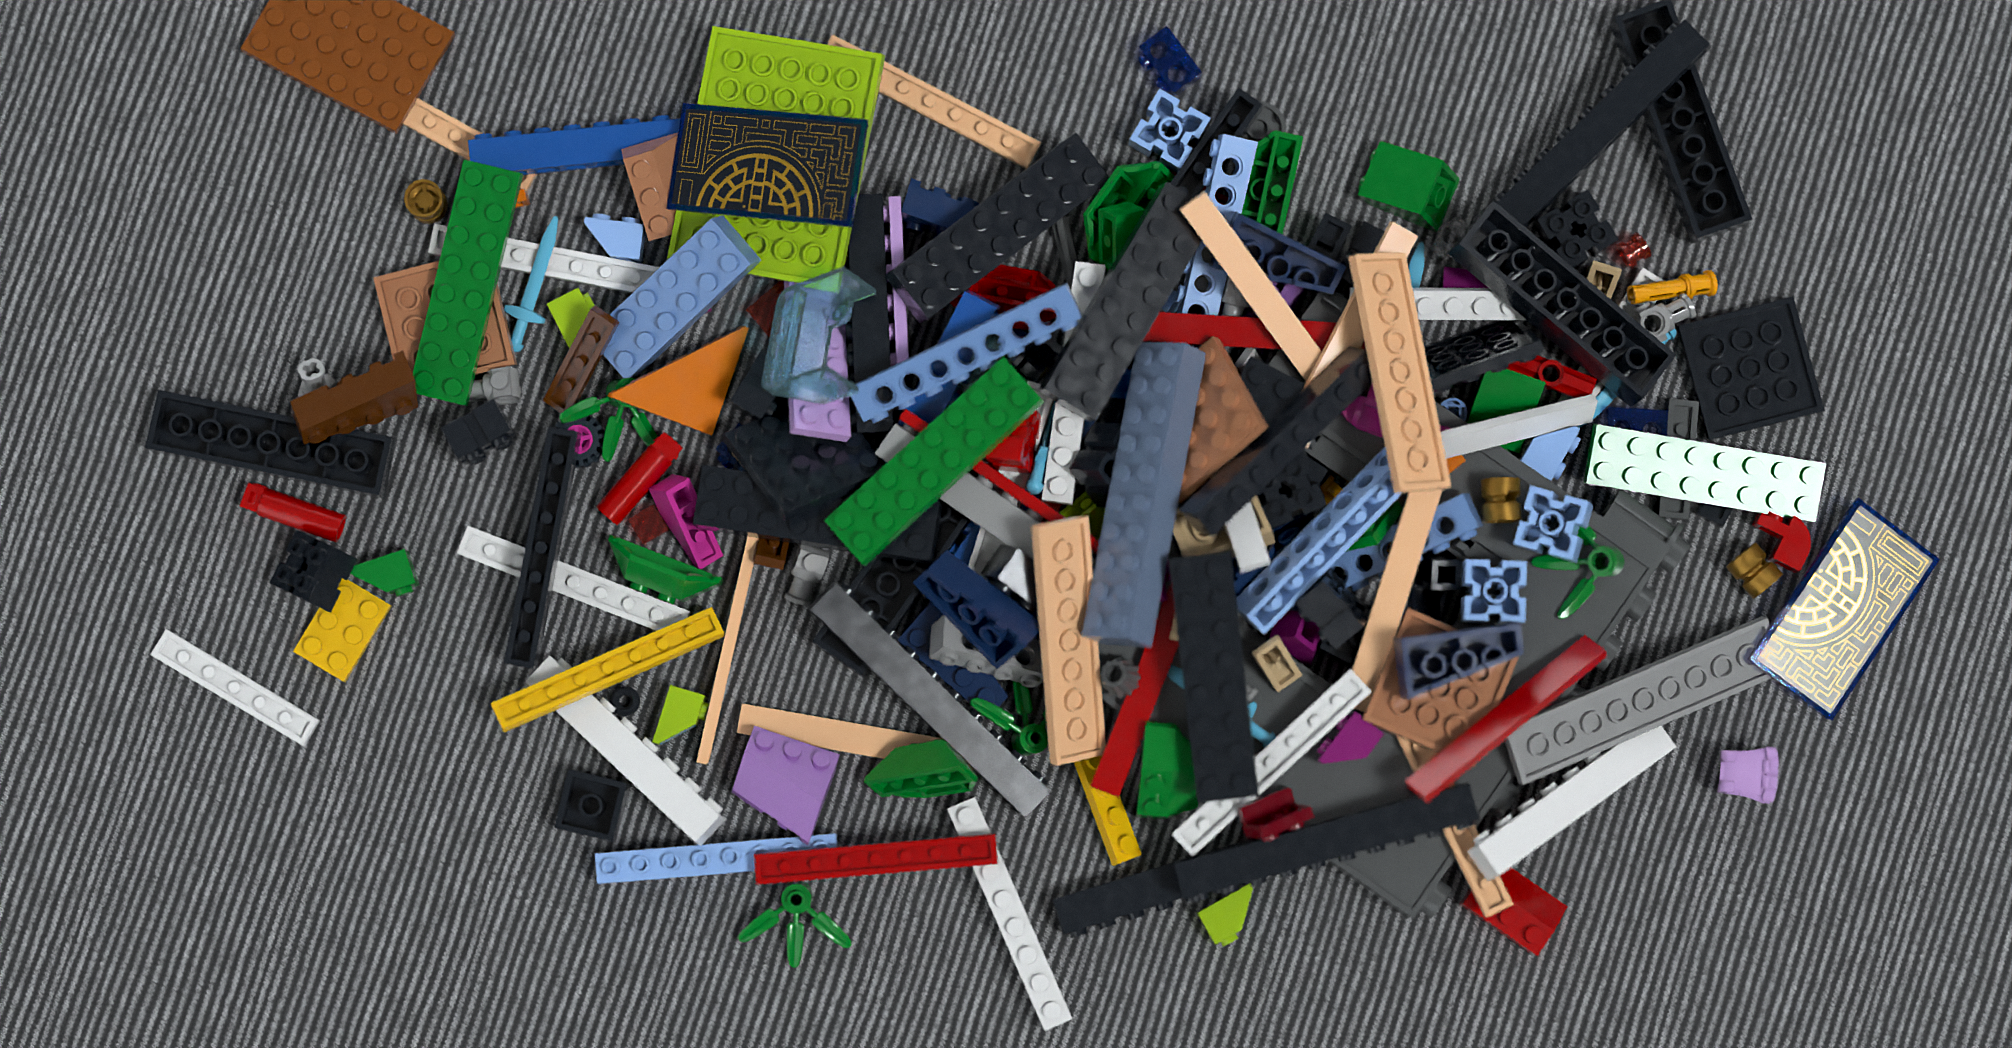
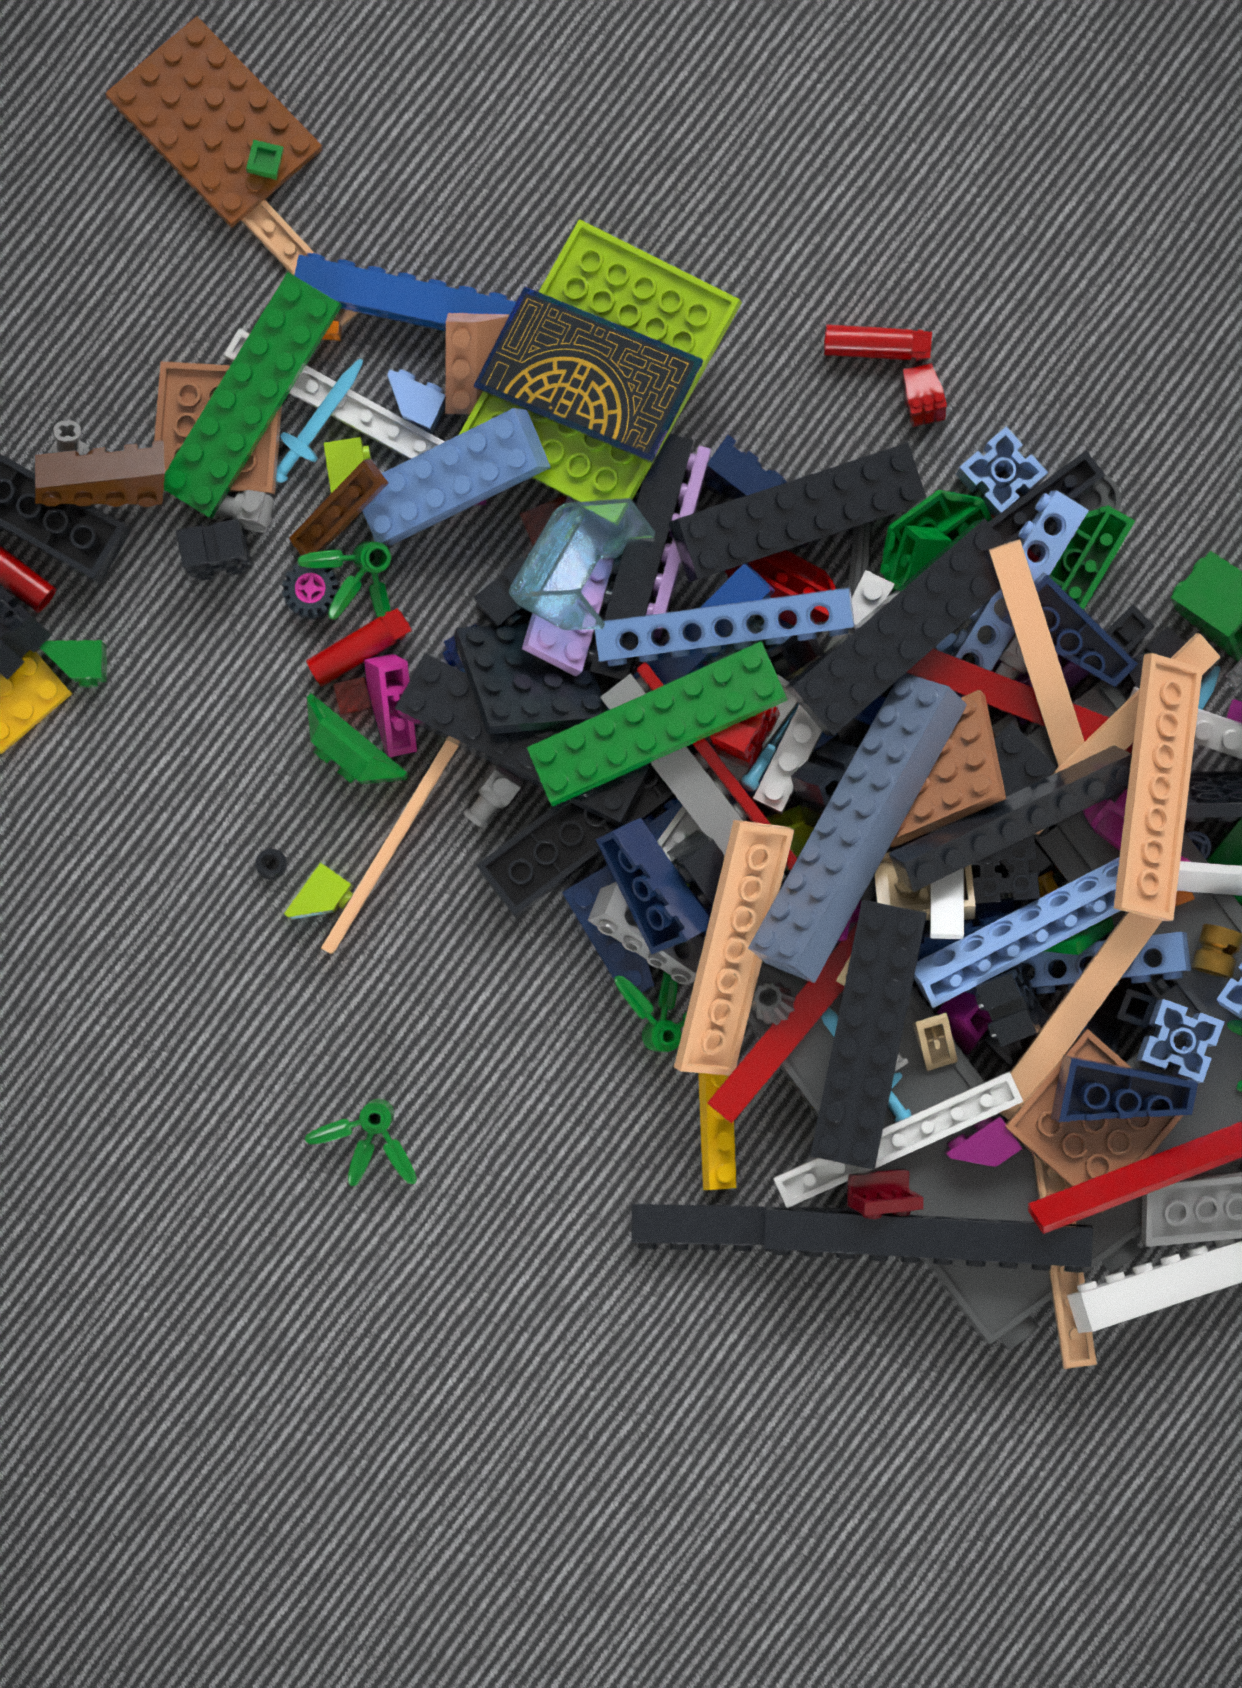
camera: 20 degrees right, 0 degrees up
(407, 63) = (264, 159): none -> green plate
(425, 201) = (238, 303): pearl gold wheel -> none
(542, 548) = (238, 683): black brick -> none
(574, 582) = (259, 729): white plate -> none
(592, 805) = (202, 957): black brick -> none
(607, 669) = (262, 826): yellow plate -> none
(637, 759) = (254, 913): white brick -> none
(689, 387) = (438, 572): orange tile -> none
(696, 859) = (310, 1051): light blue brick -> none
(771, 553) = (464, 764): reddish brown slope -> none
(785, 780) = (404, 995): medium lavender wedge -> none
(827, 732) = (489, 977): light nougat tile -> none
(875, 859) = (467, 1104): red tile -> none
(922, 772) = (542, 1032): green wedge -> none
(928, 699) = (574, 962): brick -> none
(953, 113) = (792, 387): light nougat tile -> none
(1014, 923) = (584, 1204): white brick -> none
(1018, 49) = (877, 342): none -> red piece
(1076, 83) = (924, 395): none -> red hand
(1166, 773) = (787, 1115): green wedge -> none
(1175, 59) = (1031, 403): clear blue brick -> none
(1226, 916) = (801, 1278): lime slope -> none
(1531, 916) = (1103, 1386): red slope -> none

